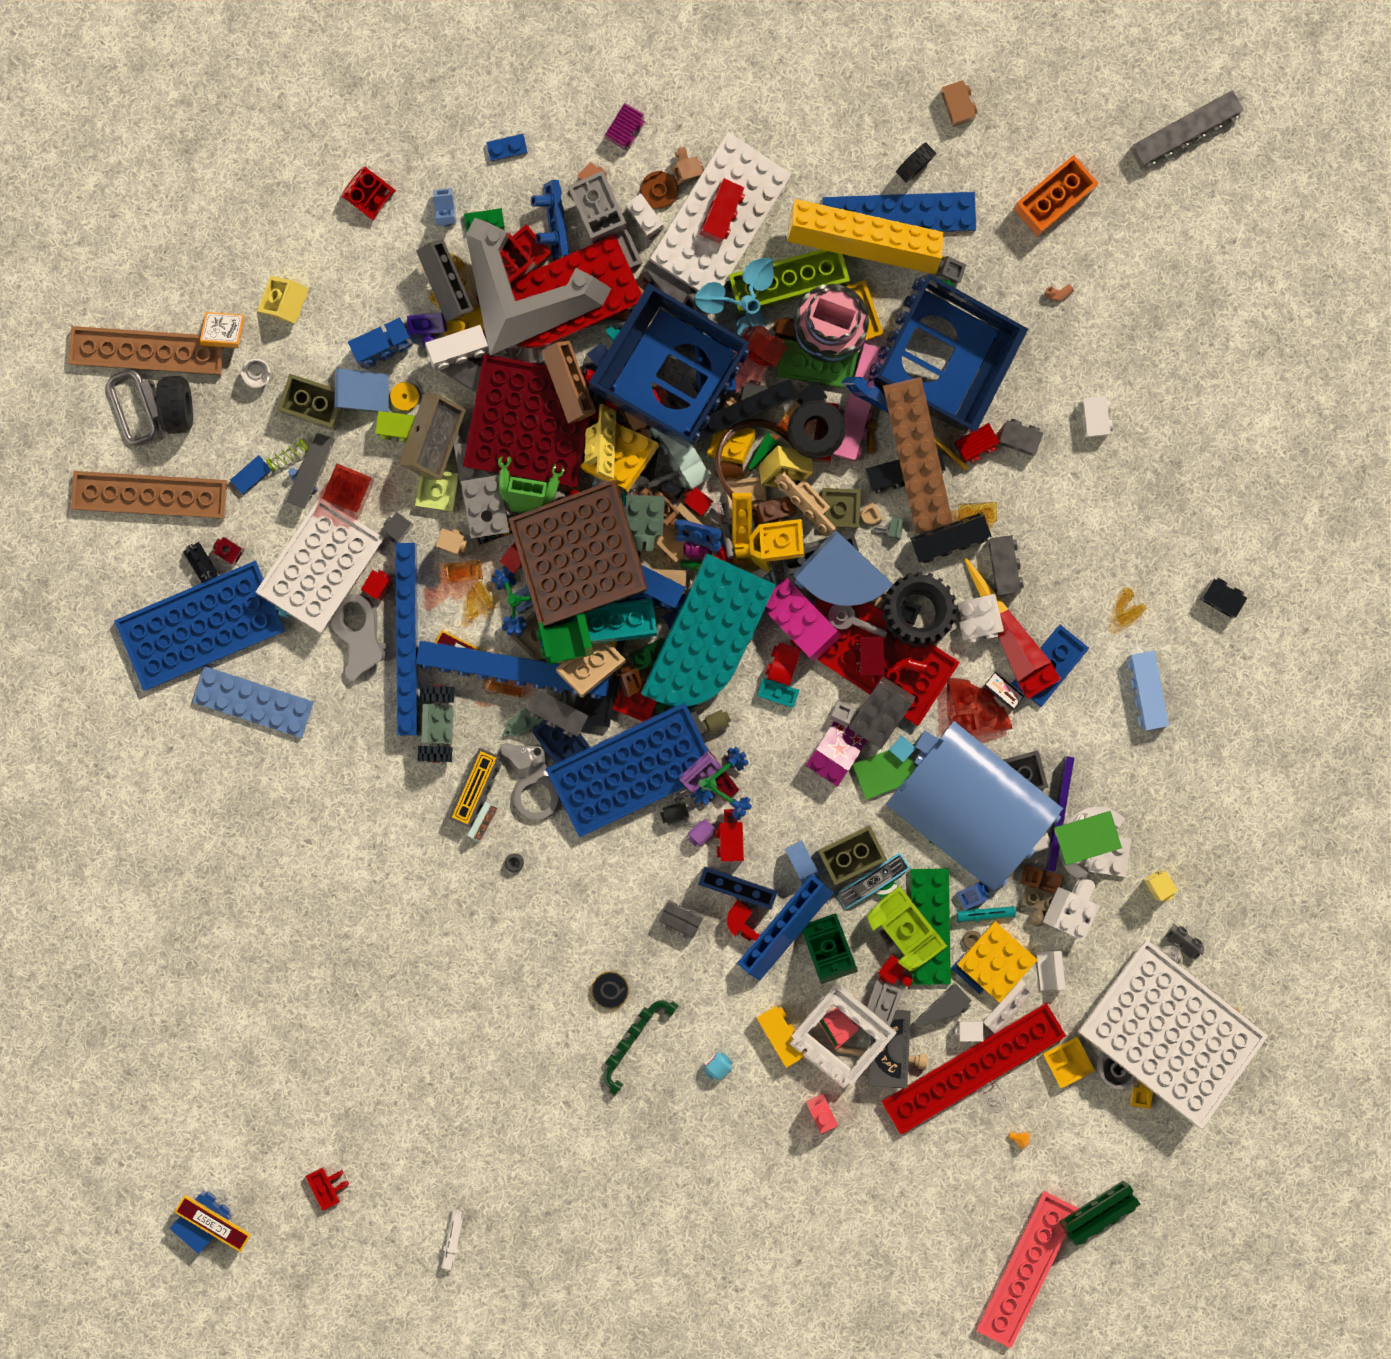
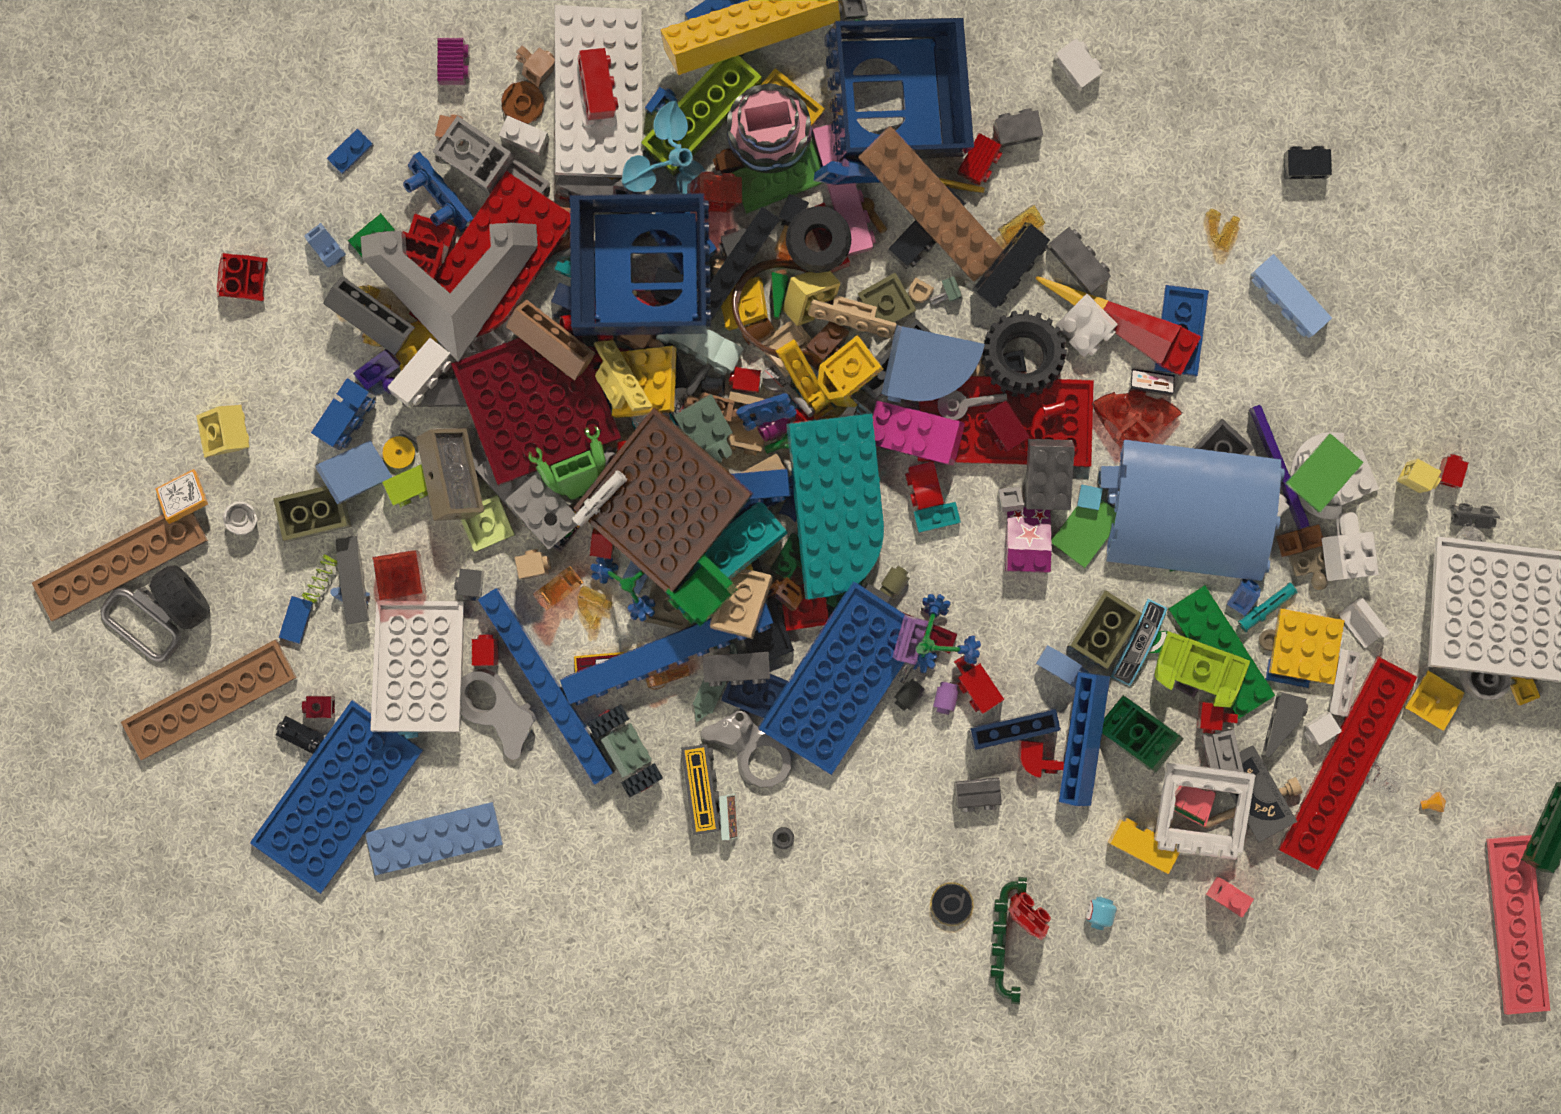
camera: 35 degrees left, 0 degrees up
(524, 525) = (599, 498): none -> white pin
(661, 1039) = (1032, 921): none -> red slope
(761, 250) = (656, 101): none -> blue bracket
(1189, 897) = (1453, 471): none -> red brick

